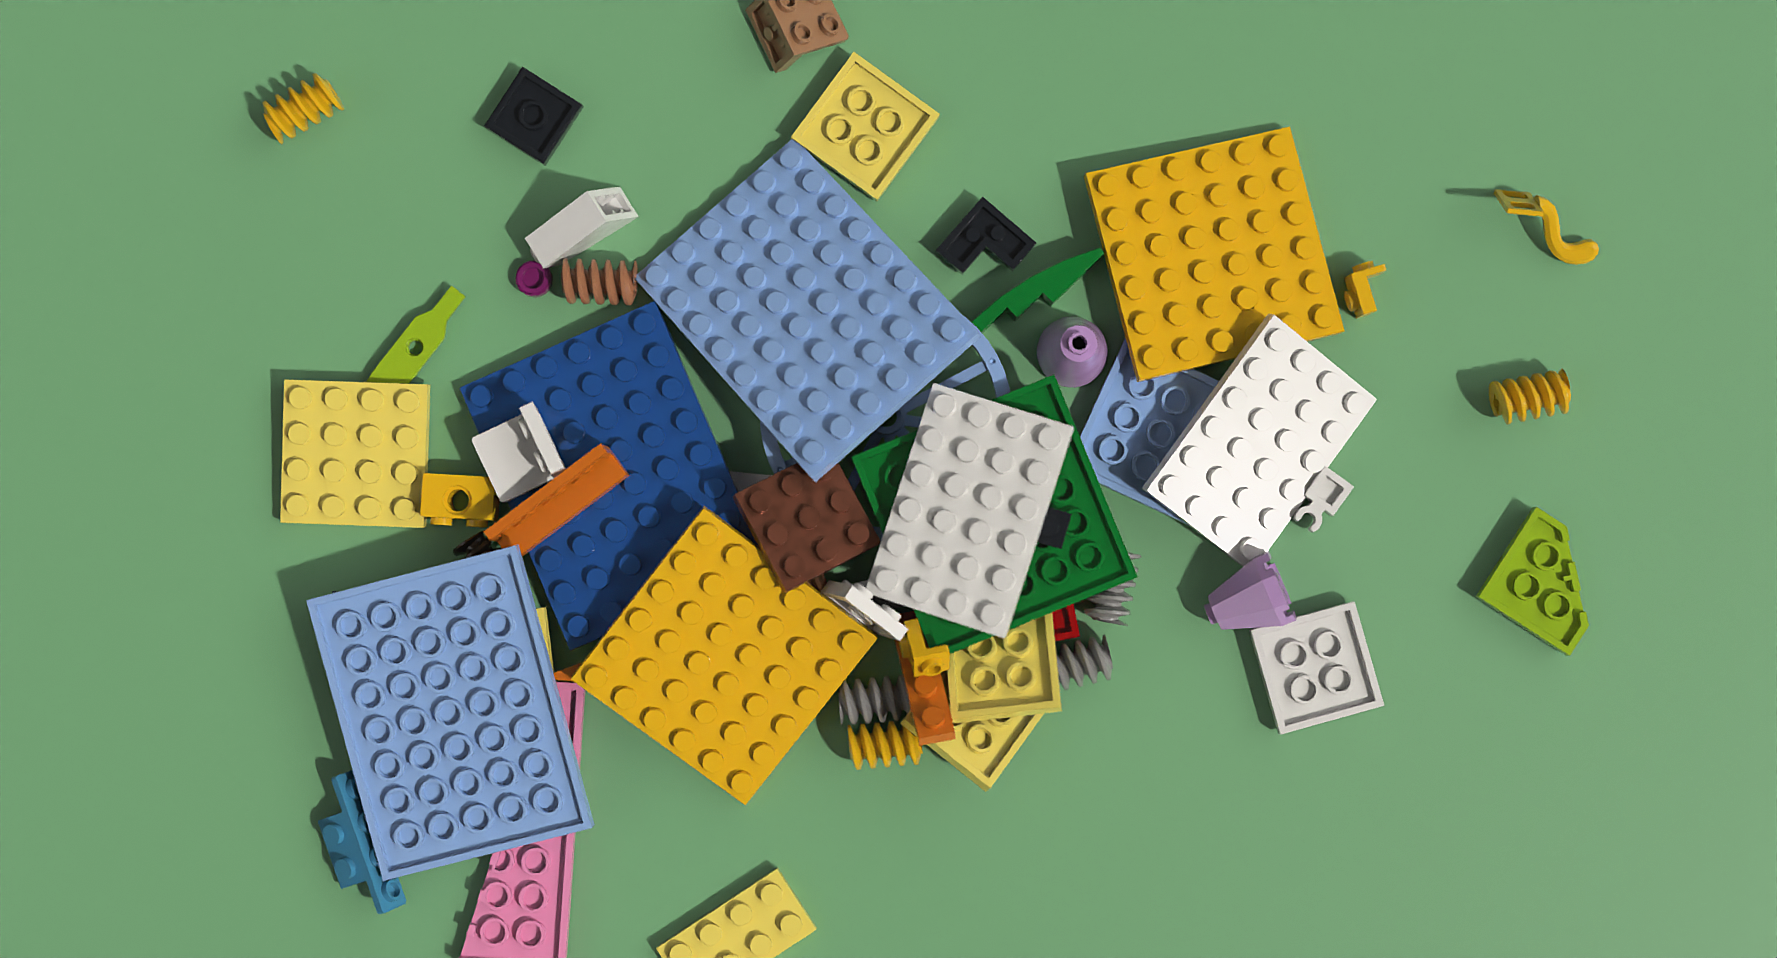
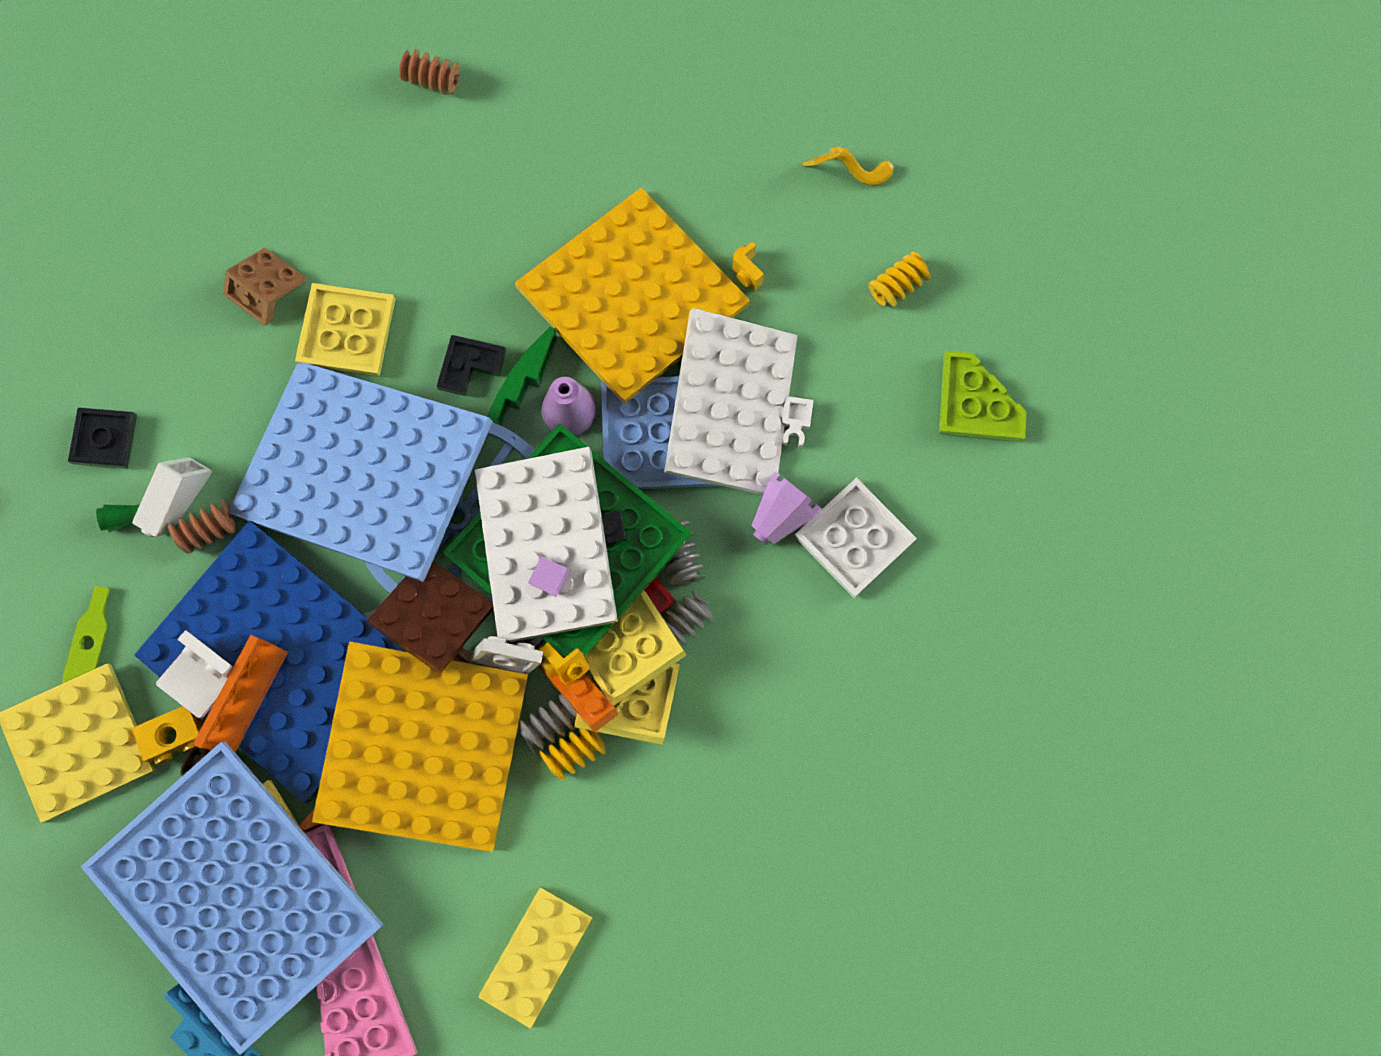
camera: 25 degrees left, 10 degrees down
(510, 218) = (115, 516): none -> green cone
(533, 279) = (155, 551): magenta tile -> none
(956, 553) = (549, 576): none -> lavender tile

